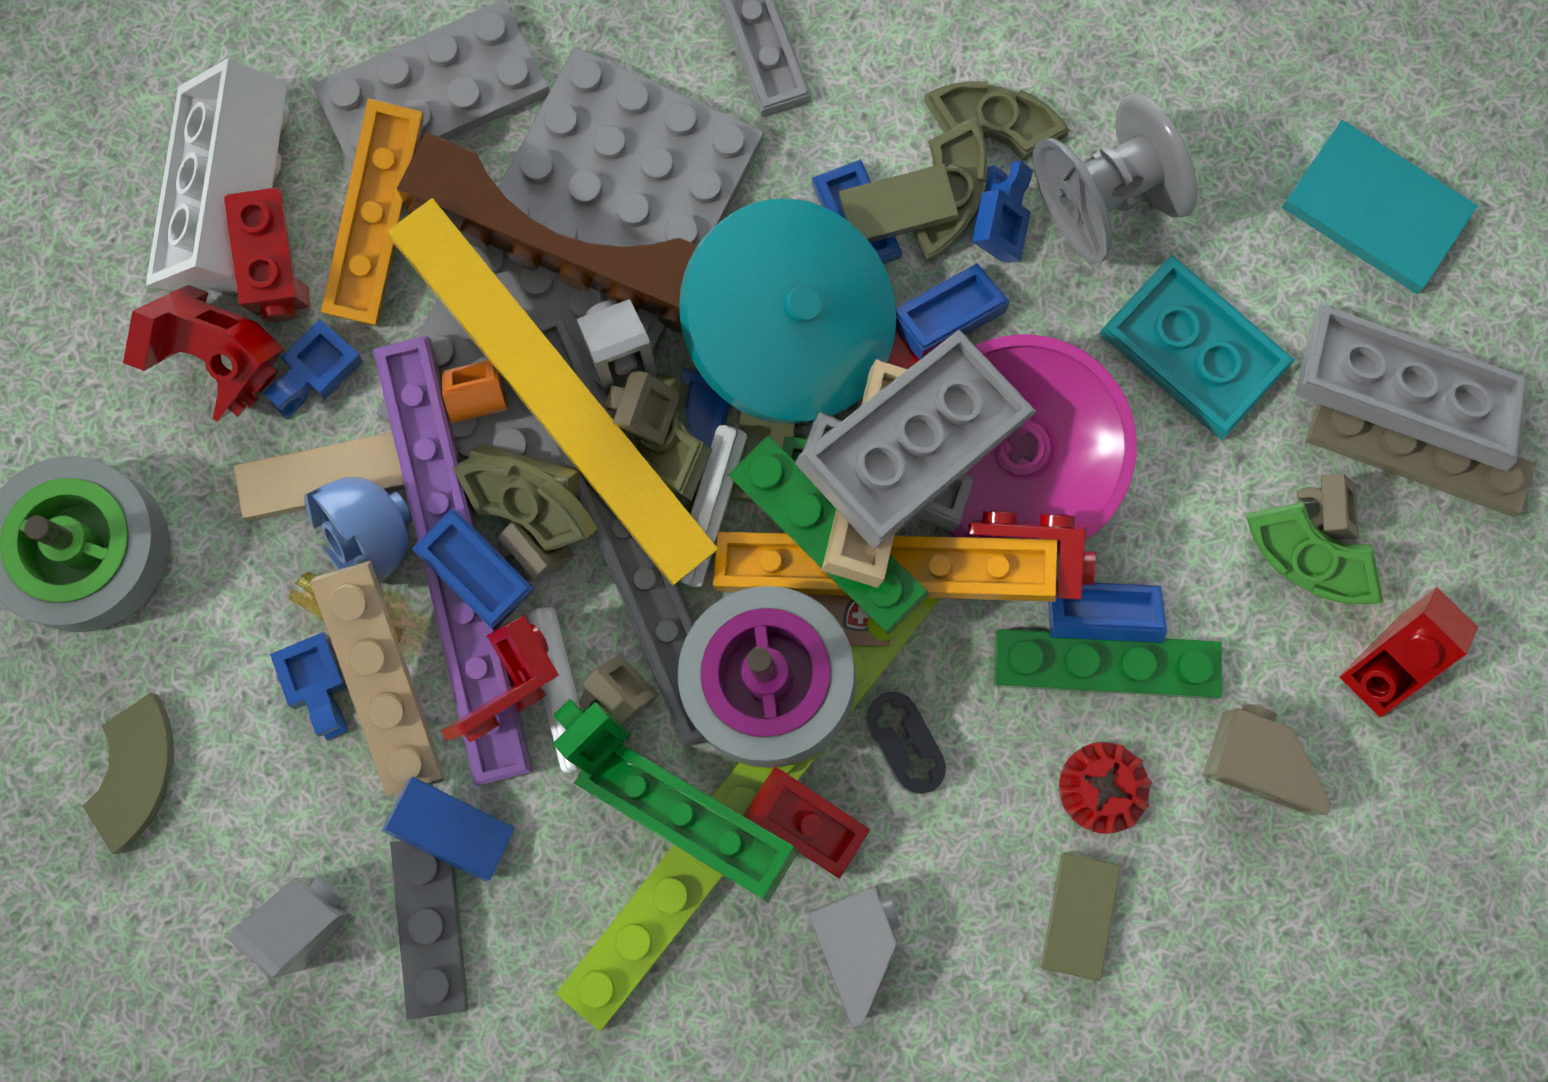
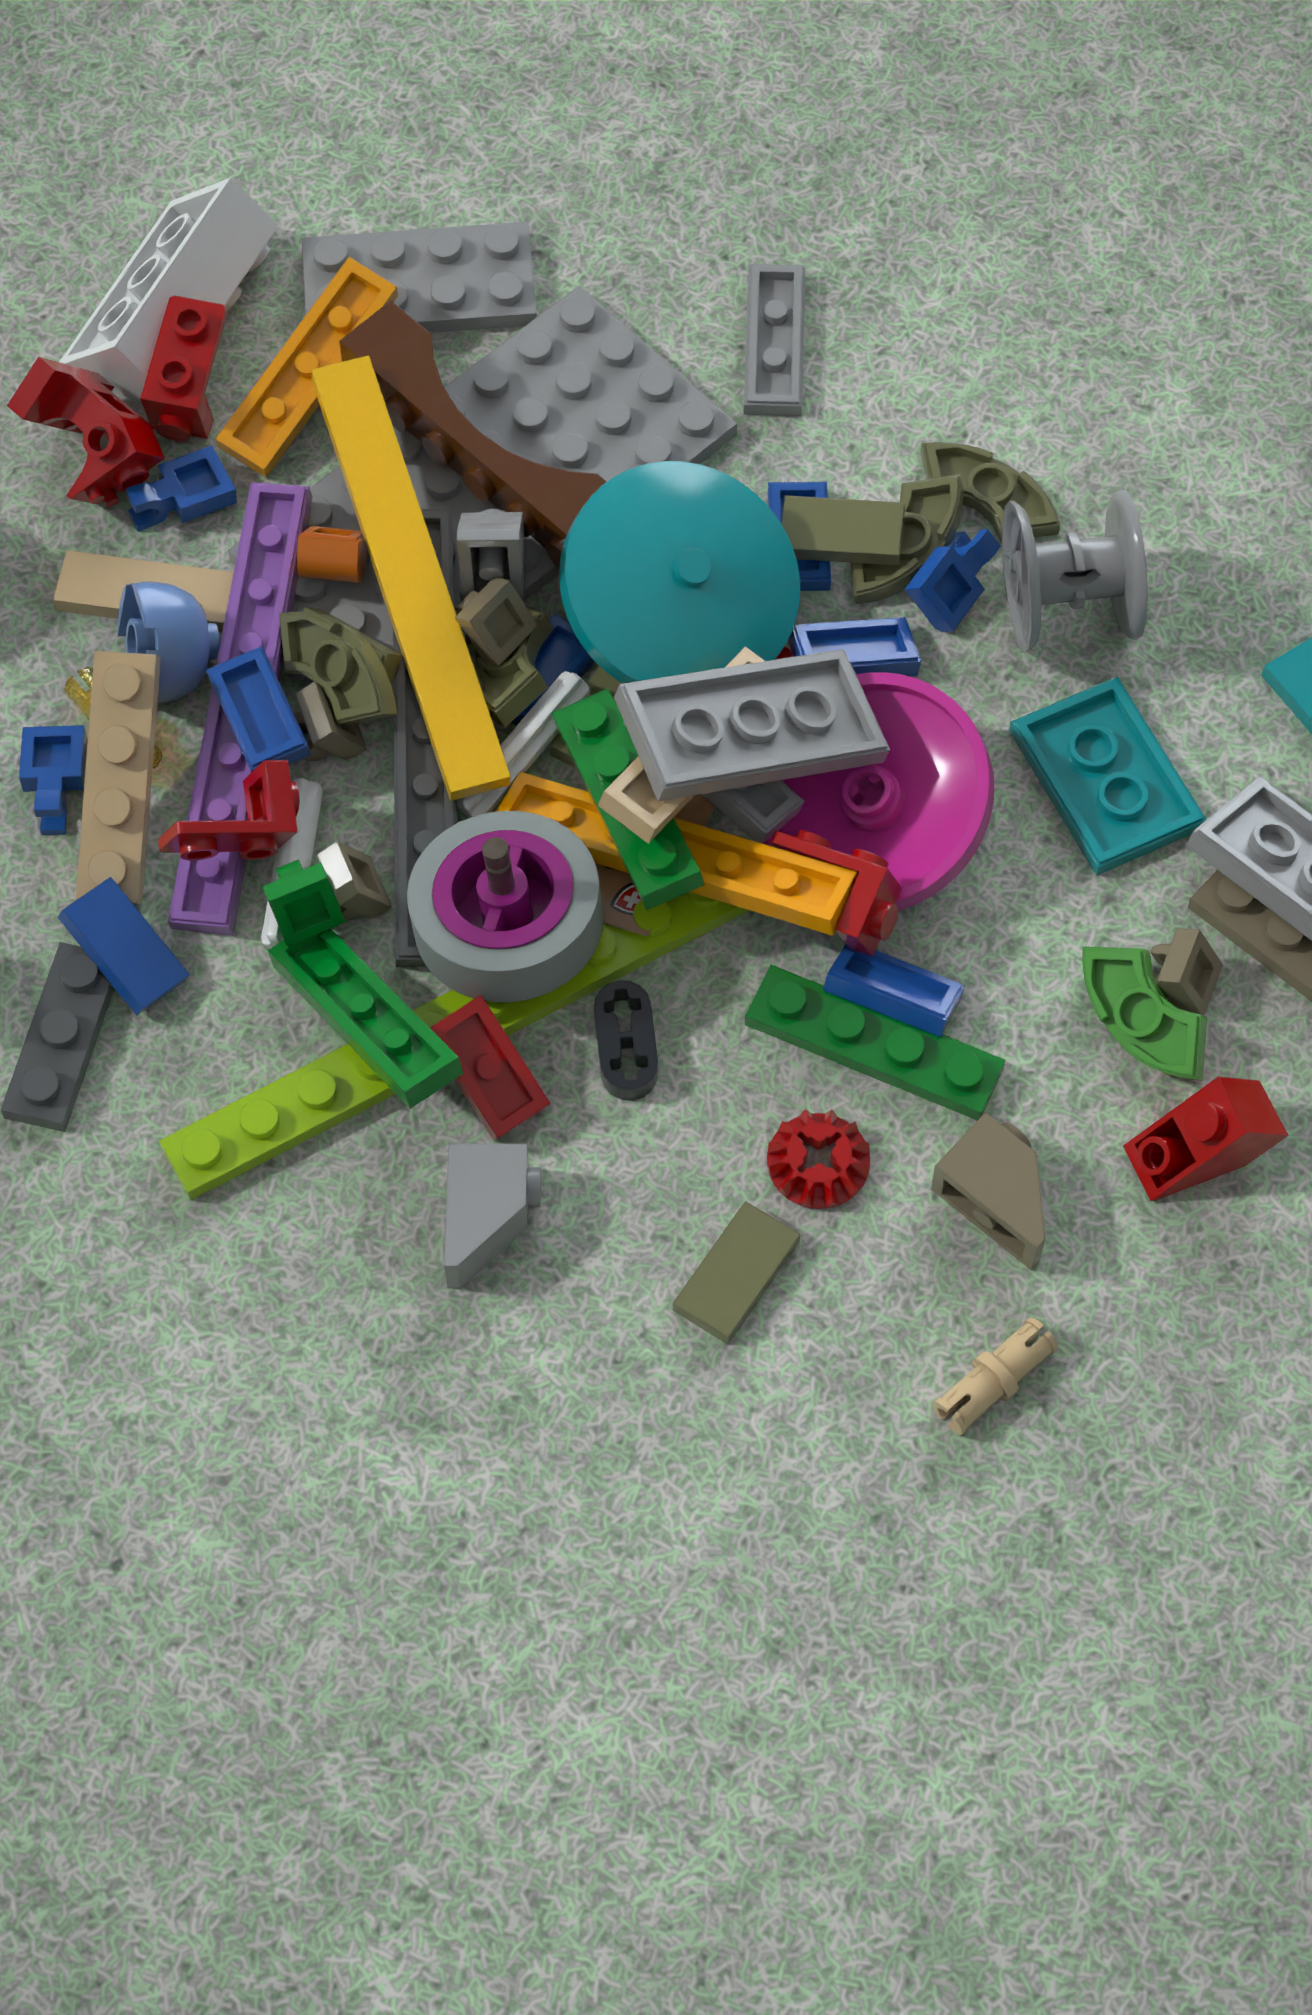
camera: 25 degrees right, 15 degrees down
(1324, 926) = (995, 1375): none -> tan pin

